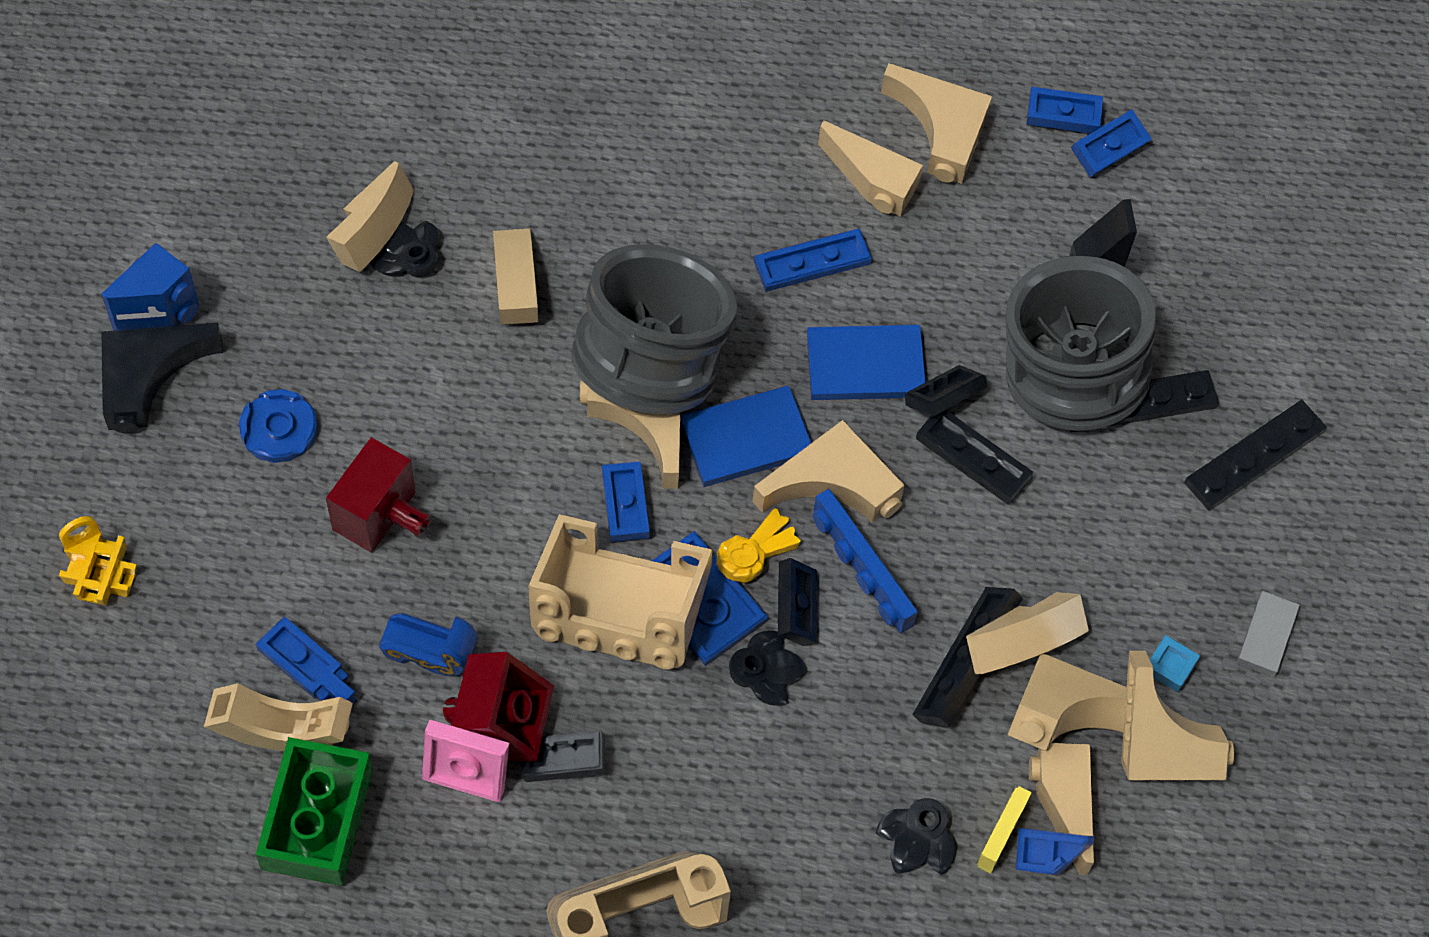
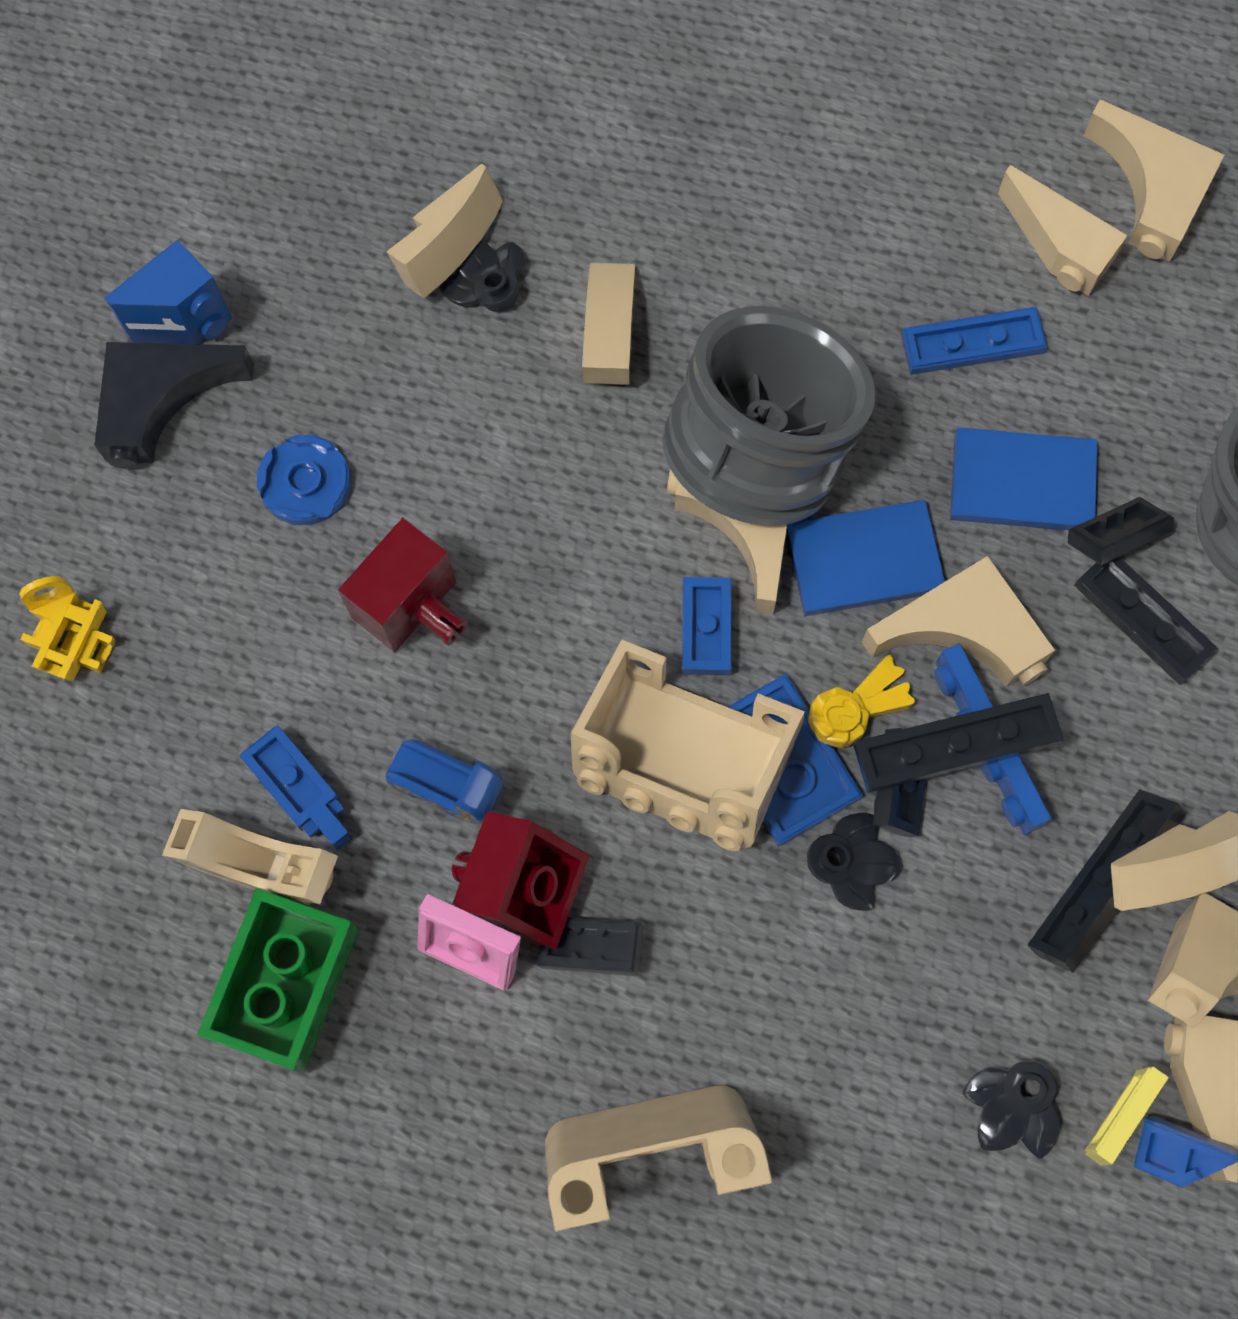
camera: 15 degrees right, 10 degrees up
(836, 561) = (958, 742): none -> black plate

